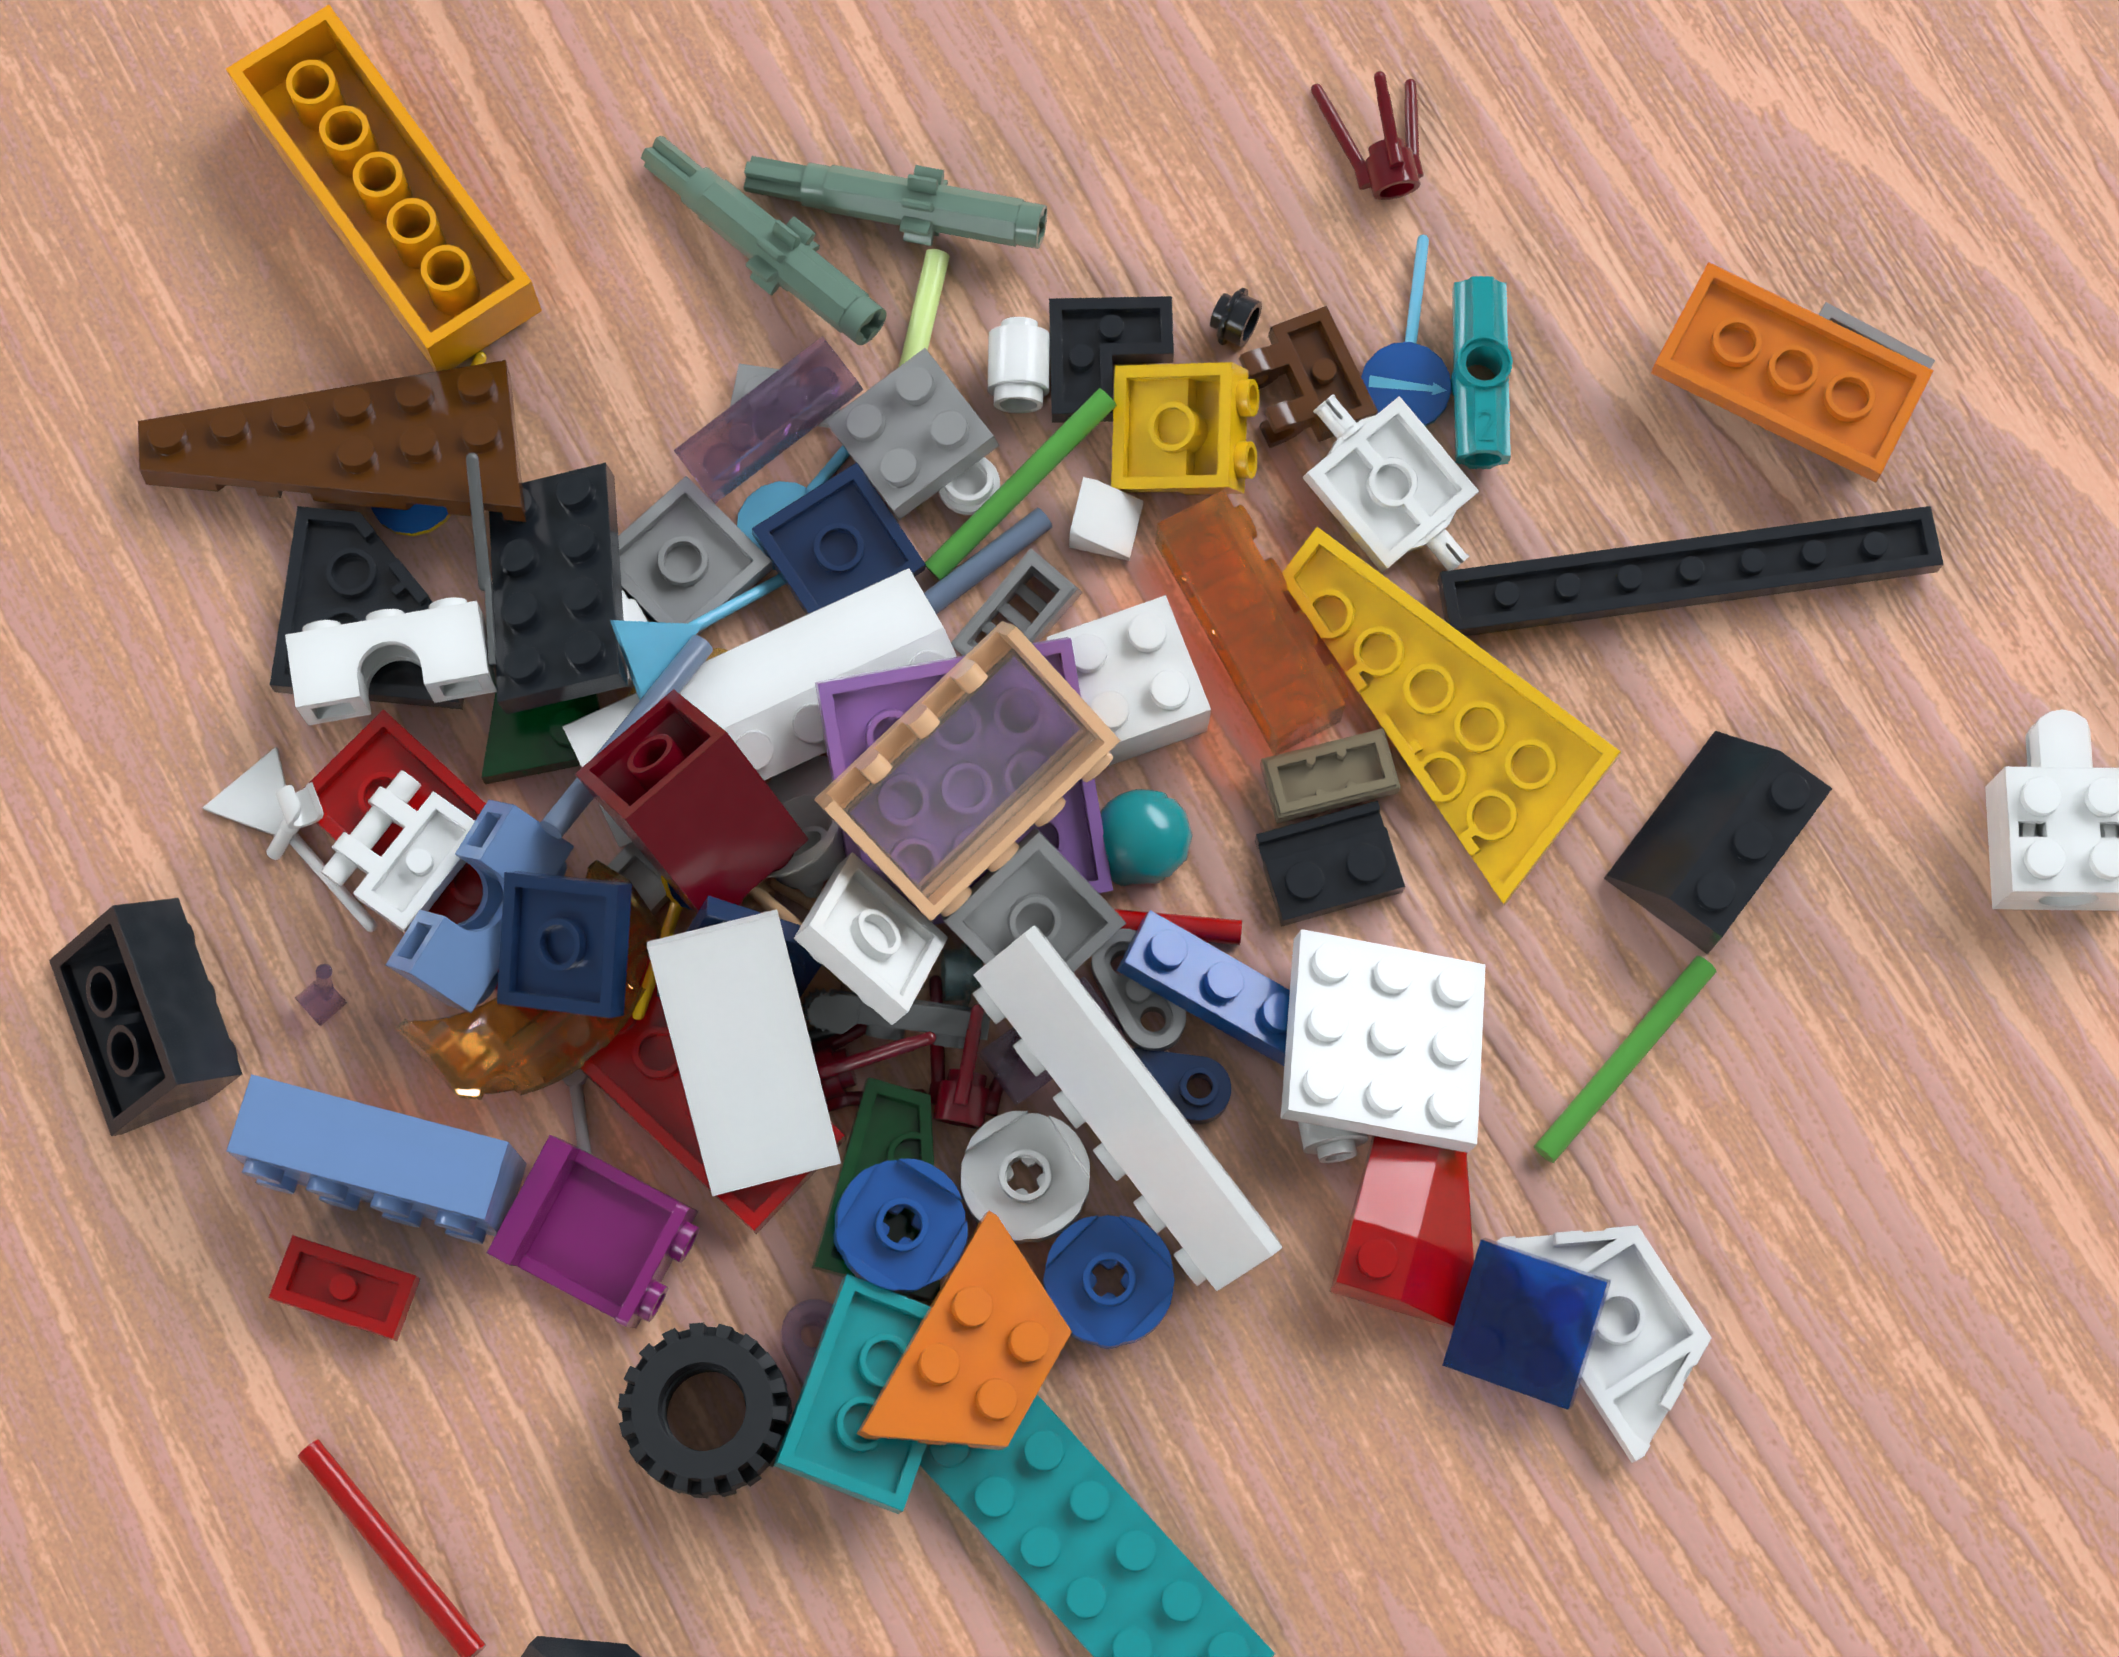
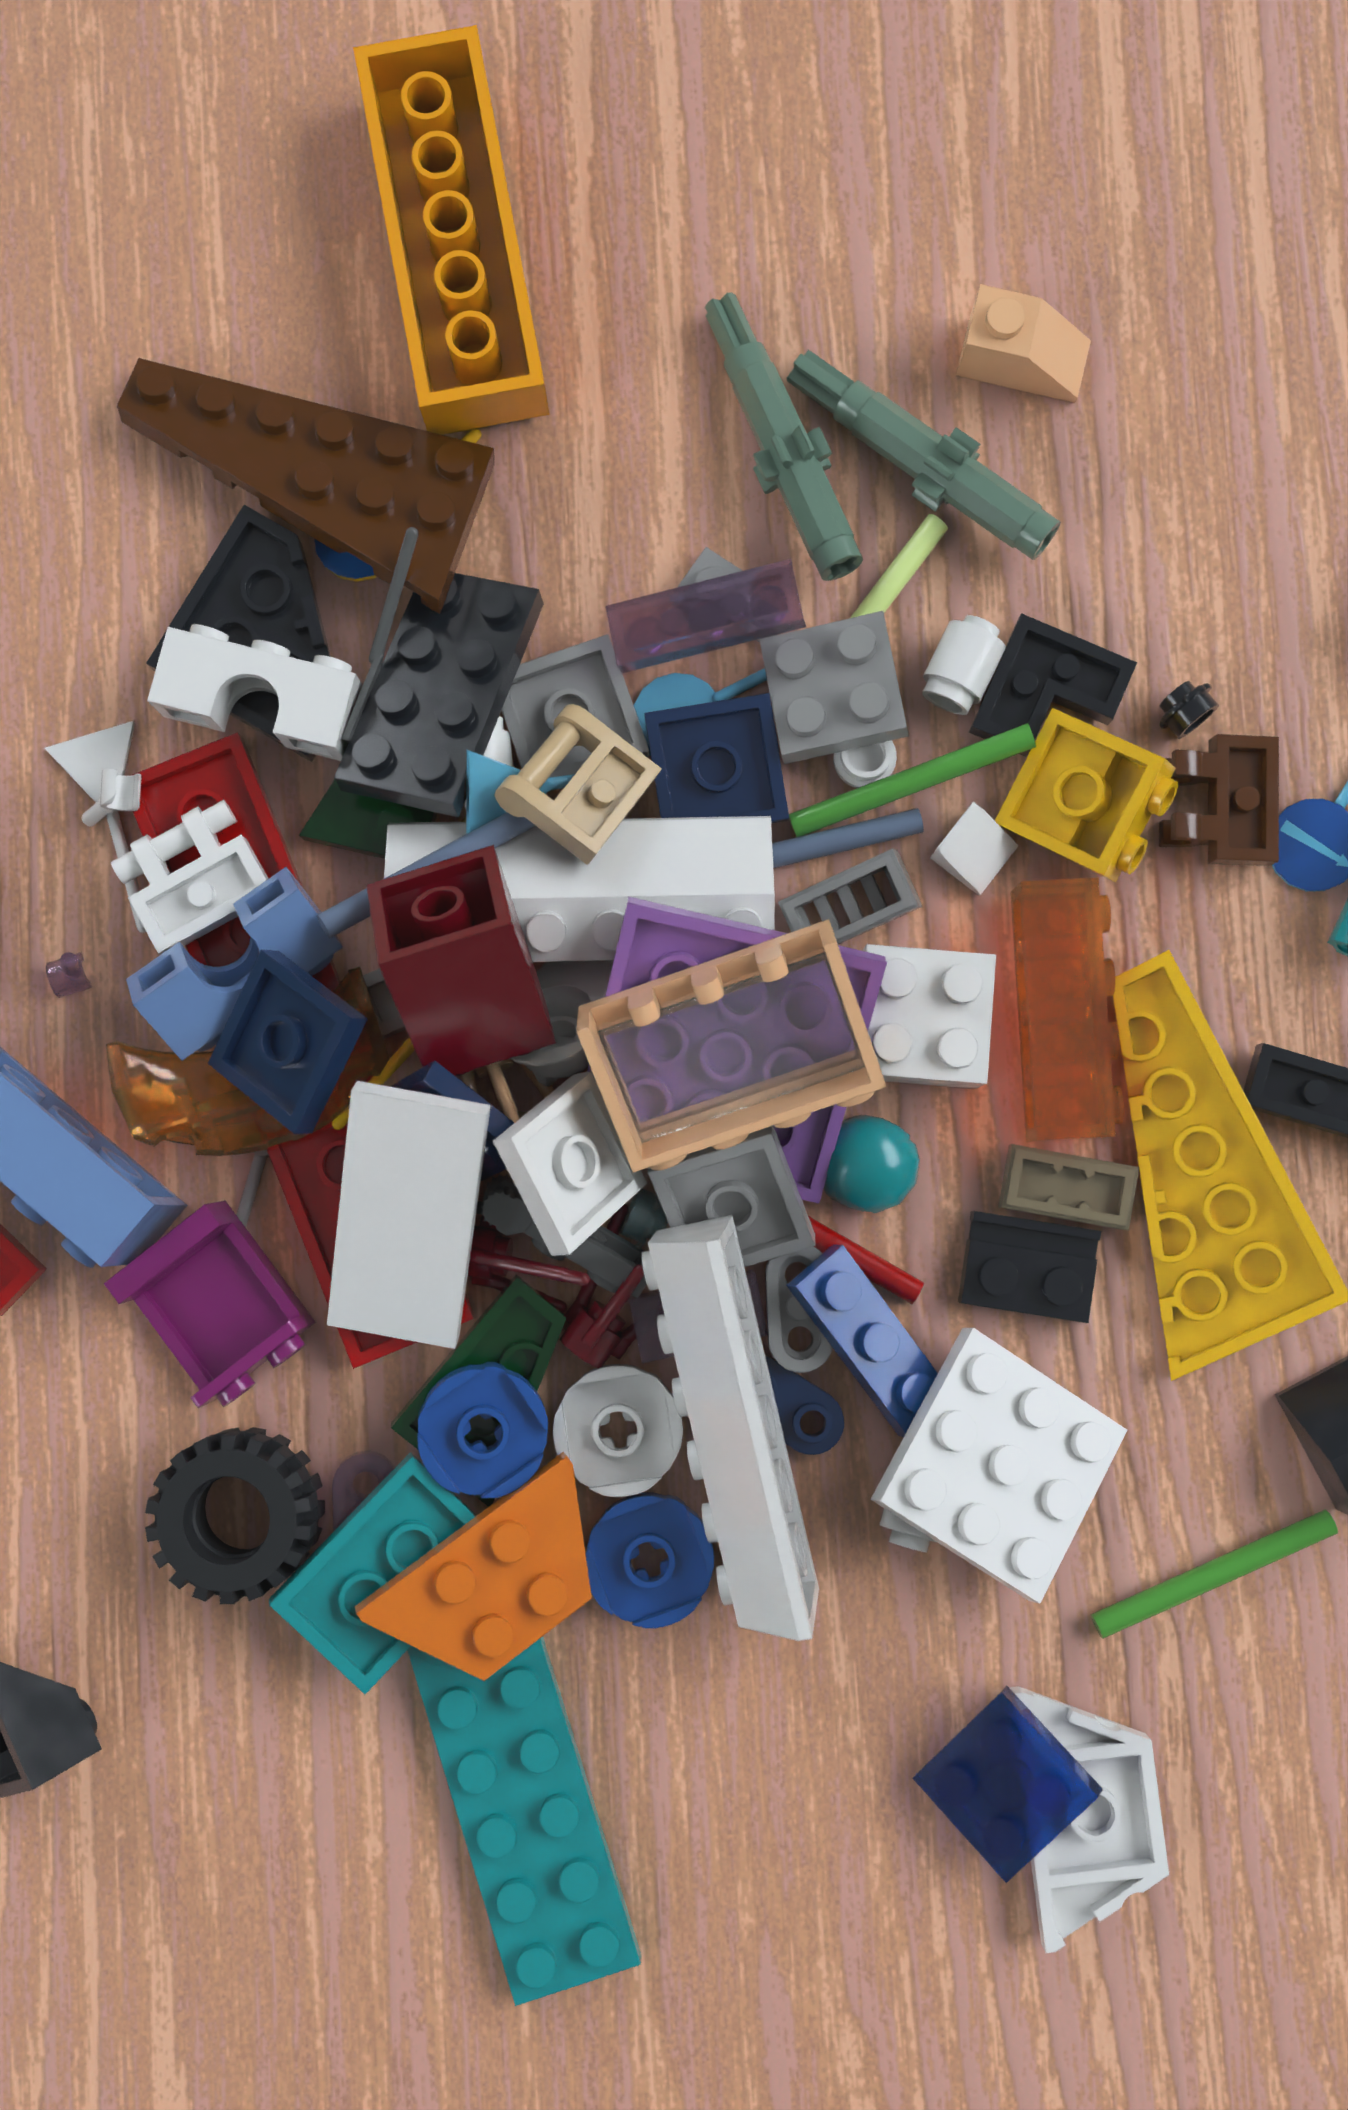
camera: 30 degrees right, 10 degrees up
(743, 614) = (595, 796): none -> tan plate
(941, 72) = (1023, 345): none -> light nougat slope
(1390, 484) = (1257, 937): white plate -> none
(1409, 1232) = (937, 1644): red wedge -> none

